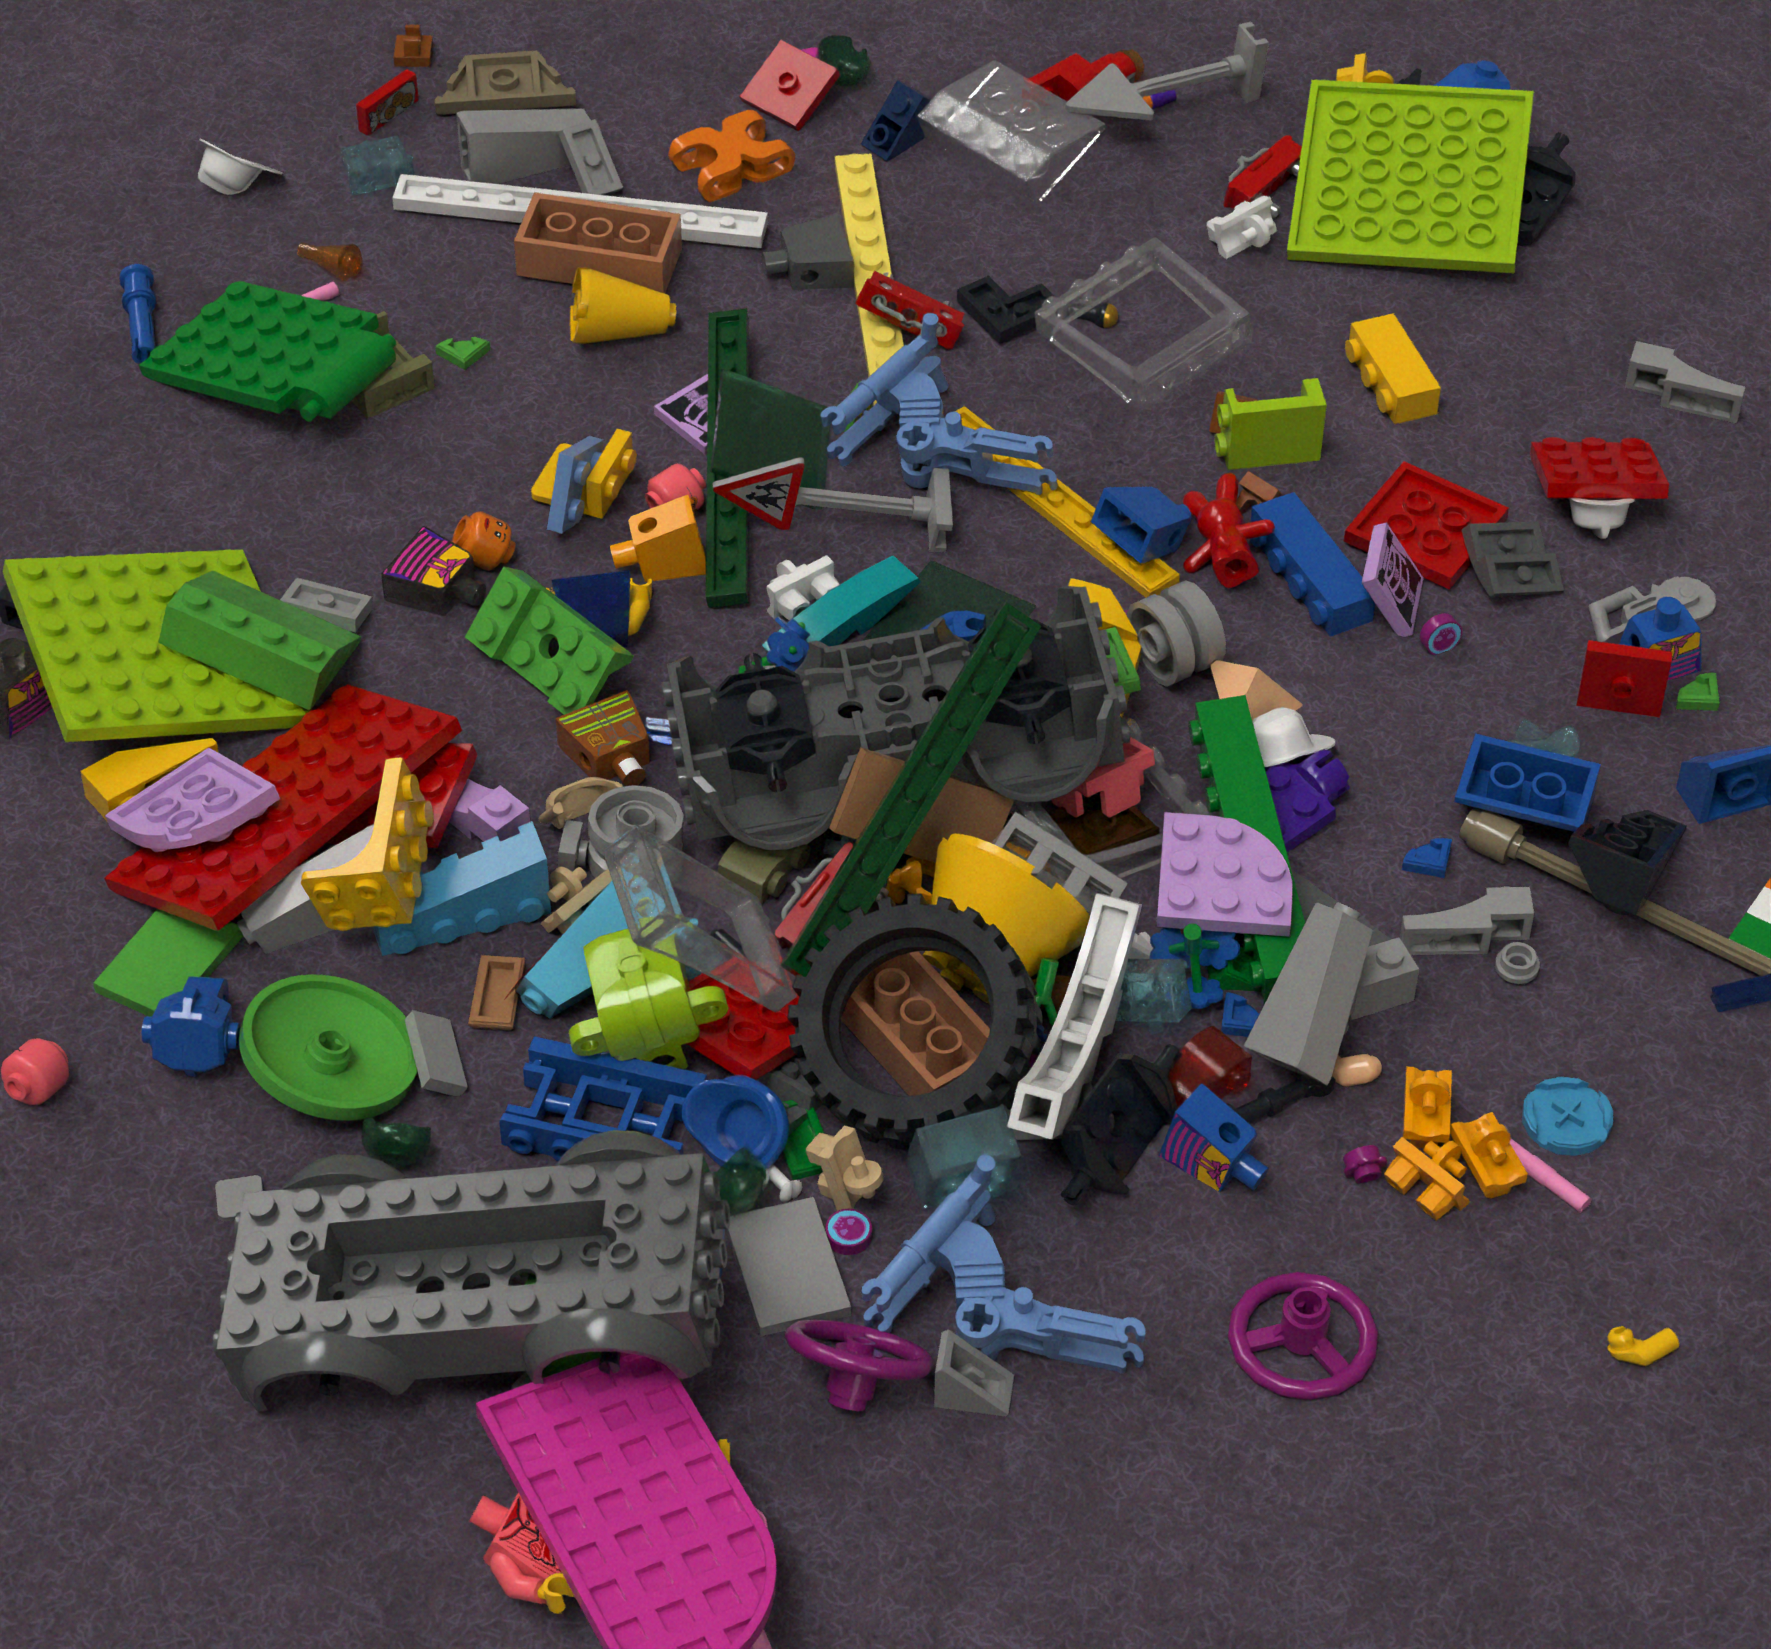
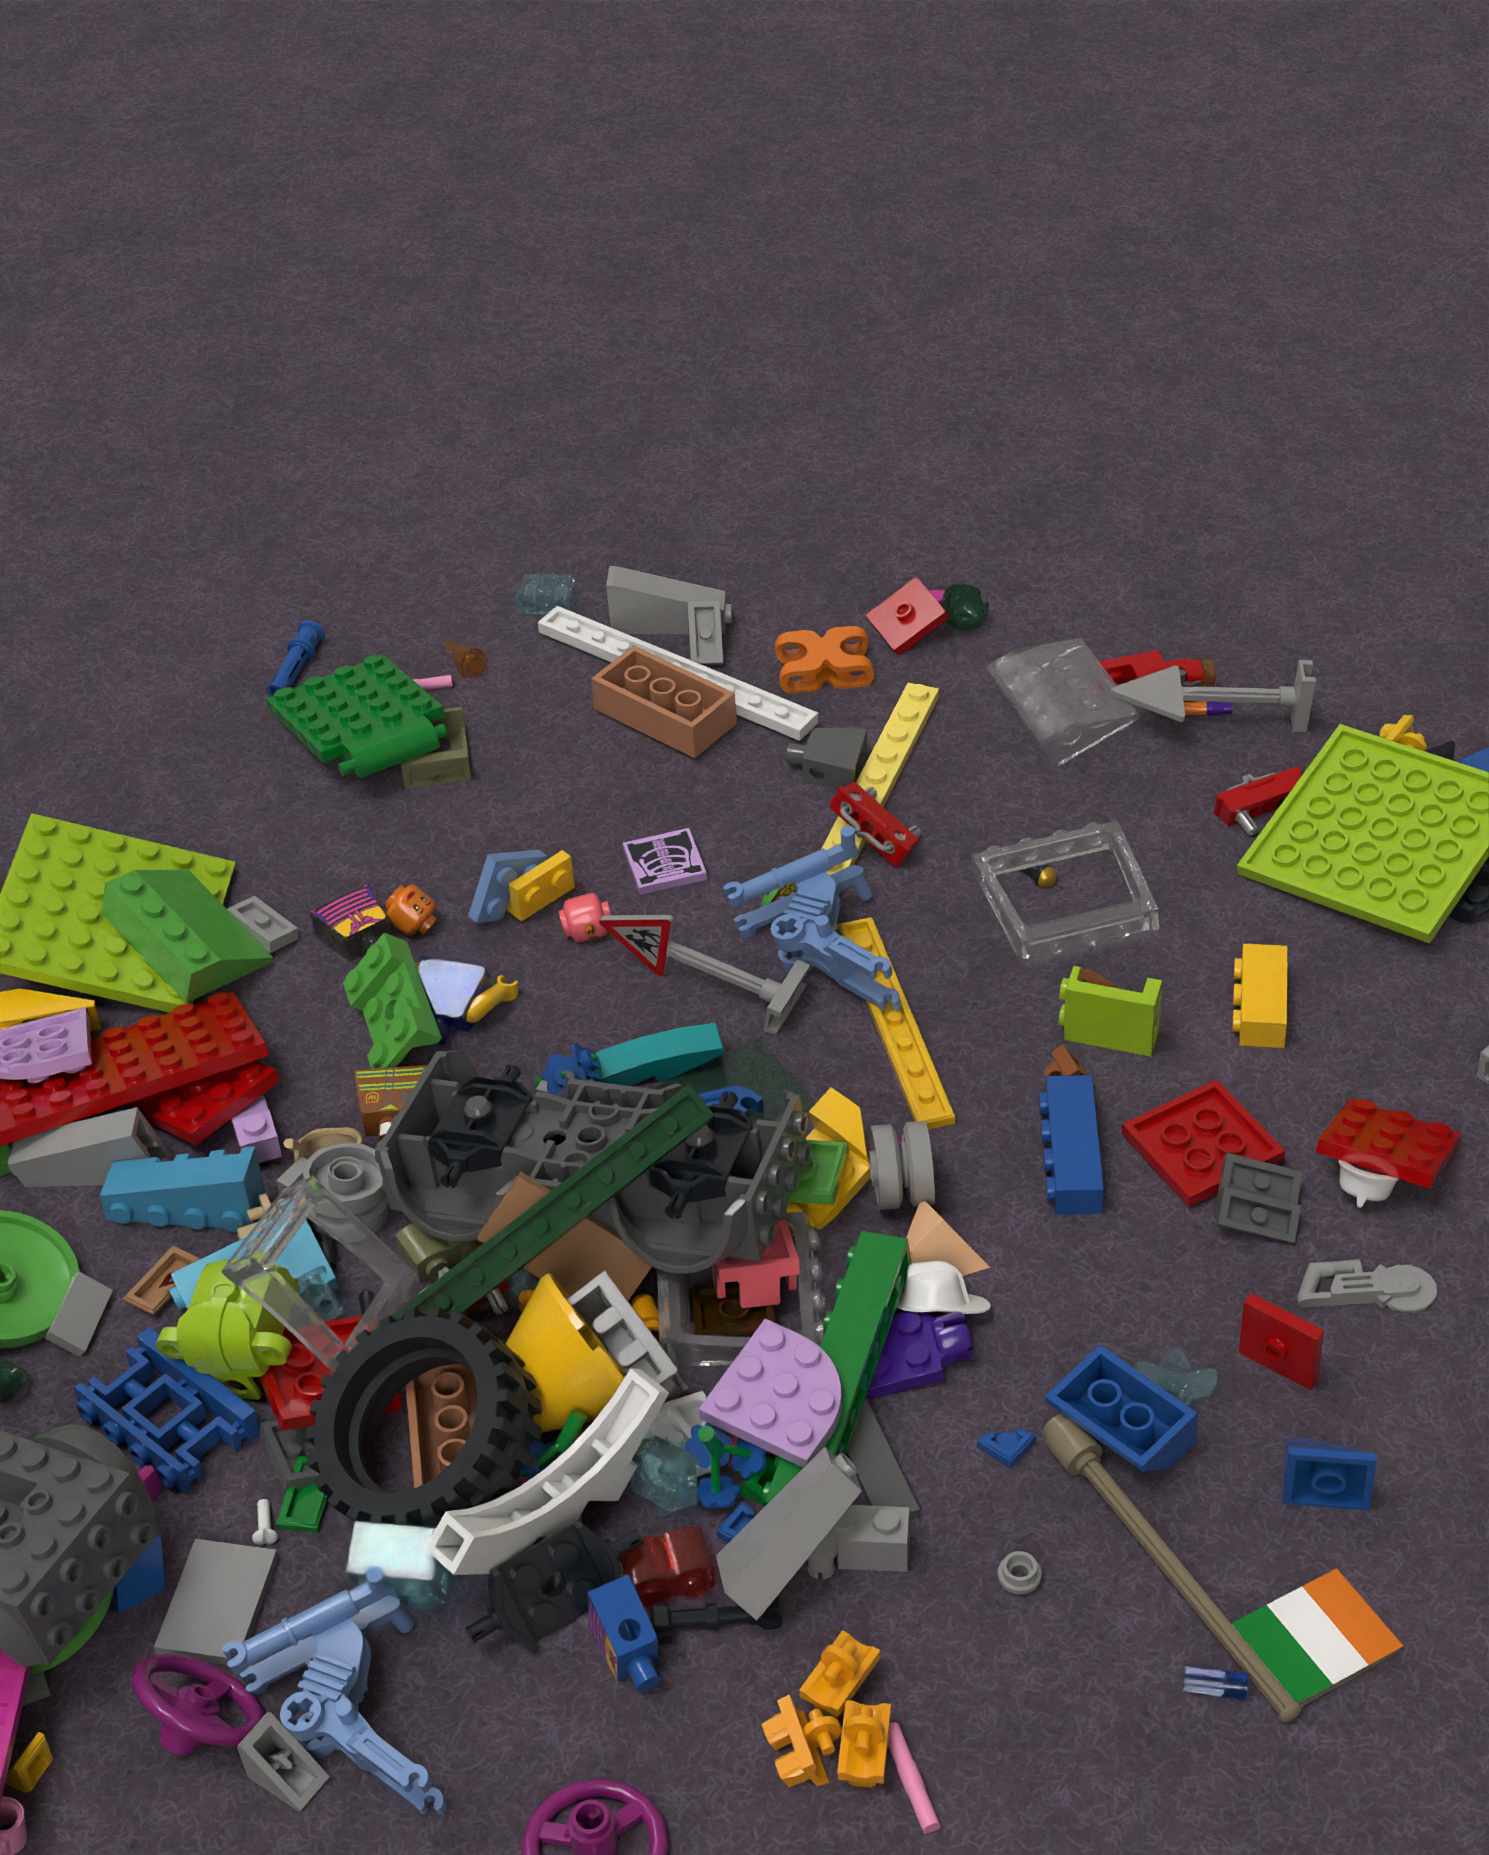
camera: 30 degrees right, 5 degrees down
(227, 172) = (433, 569): white piece -> none
(385, 876) = (127, 1138): yellow bracket -> none
(387, 102) = (588, 548): tile -> none
(413, 48) = (640, 513): dark orange tile -> none
(463, 352) = (511, 757): bright green tile -> none
(504, 83) = (686, 557): dark tan wing -> none
(616, 309) = (640, 755): yellow cone -> none
(663, 542) = (544, 955): light orange torso -> none
(725, 522) = (648, 897): dark green plate -> none
(736, 1114) = (251, 1458): blue piece -> none
(742, 1180) = (219, 1519): clear green hair -> none
(767, 427) = (688, 884): clear green piece -> none
(798, 585) = (628, 1024): white hips -> none
(845, 1170) = (304, 1535): tan hips -> none
(849, 1231) = (285, 1592): magenta tile -> none
(897, 122) = (969, 672): dark blue slope -> none
(998, 312) = (954, 846): black plate -> none
(1141, 521) = (947, 1060): blue torso -> none
(1225, 534) = (1016, 1085): red animal -> none
(1244, 227) = (1212, 835): white hips -> none
(1356, 1069) = (803, 1614): light nougat arm -> none
(1364, 1164) = (753, 1706): magenta plate -> none
(1392, 580) = (1128, 1181): lavender tile -> none
(1440, 633) = (1148, 1244): magenta tile -> none
(1498, 915) = (994, 1523): light grey slope -> none
(1567, 1116) = (972, 1736): dark azure tile -> none
(1625, 857) = (1170, 1512): black wedge -> none
(1668, 629) = (1347, 1319): blue torso -> none
(1700, 694) = (1360, 1381): bright green tile -> none

